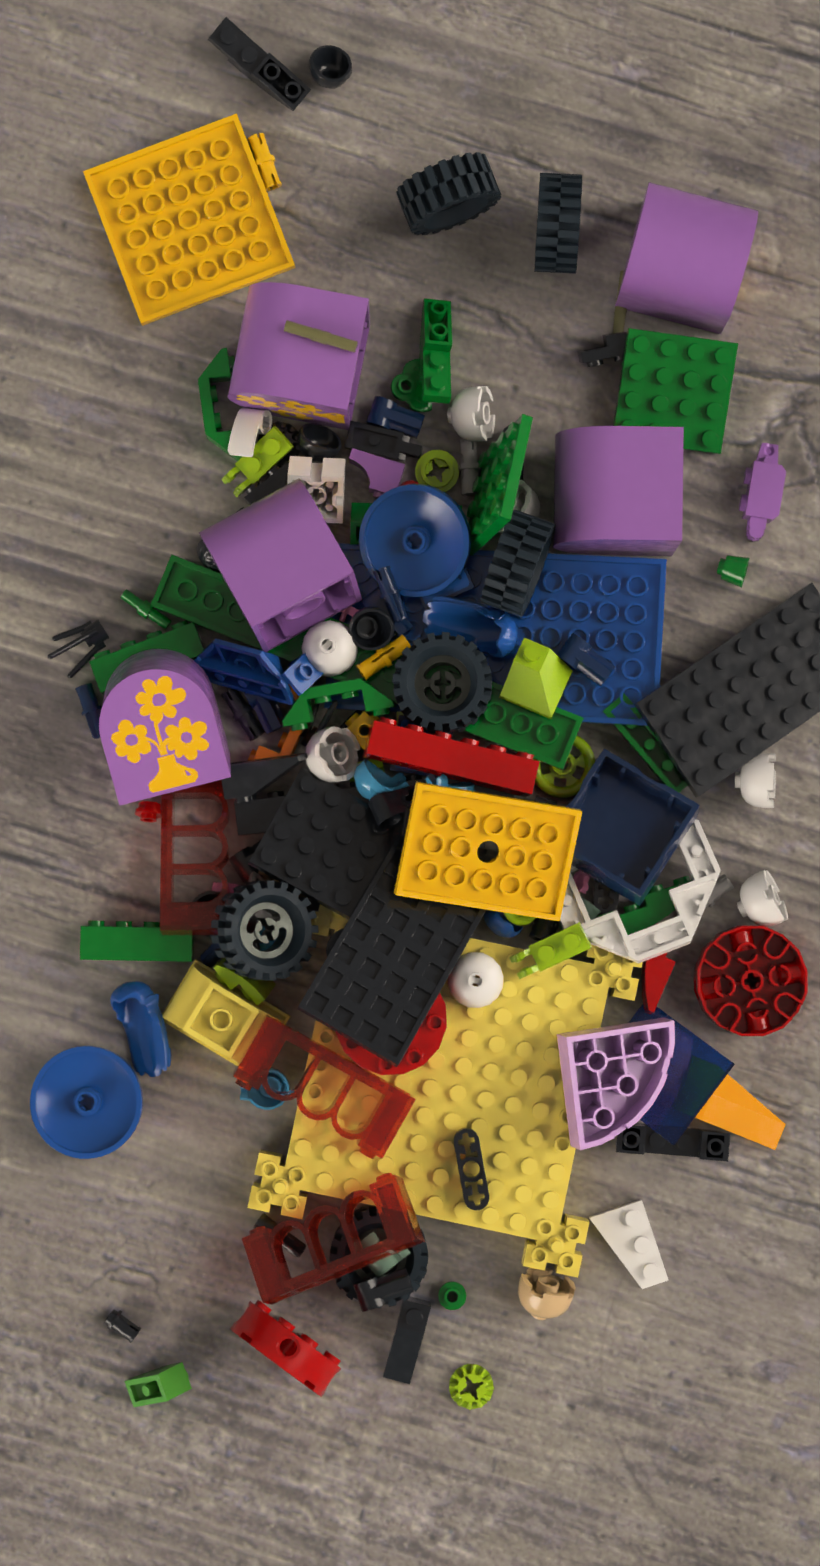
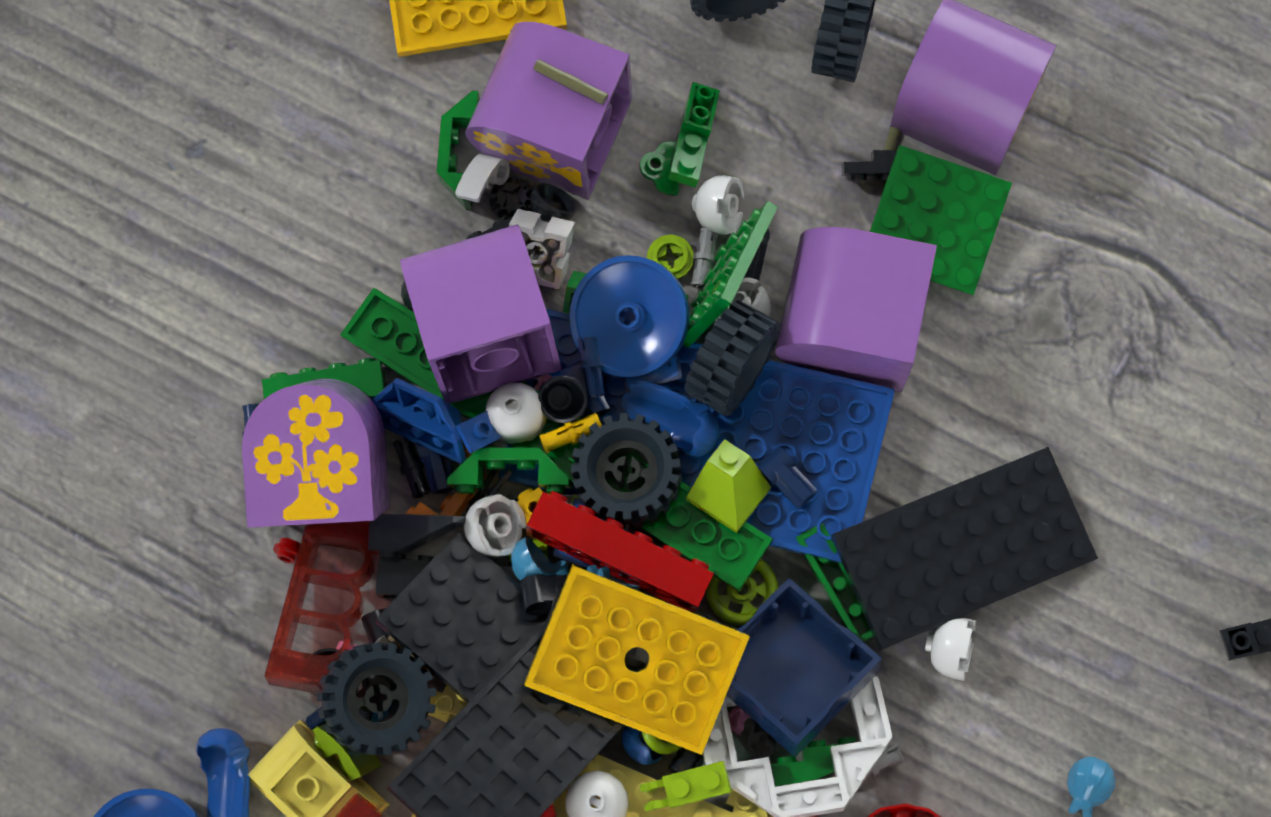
camera: 20 degrees right, 10 degrees down
(91, 633) = (272, 353): black plant -> none
(133, 943) = (238, 688): green brick -> none
(145, 609) = (334, 340): green bar -> none
(266, 455) = (493, 205): lime hinge -> none
(381, 442) = (618, 216): black hinge -> none
(381, 472) = (607, 240): medium lavender arch -> none
(389, 415) = (631, 191): dark blue piece -> none
(733, 569) = (965, 417): green hat -> none
(761, 900) = (932, 781): white cylinder -> none
(763, 491) = (1013, 342): medium lavender hinge -> none

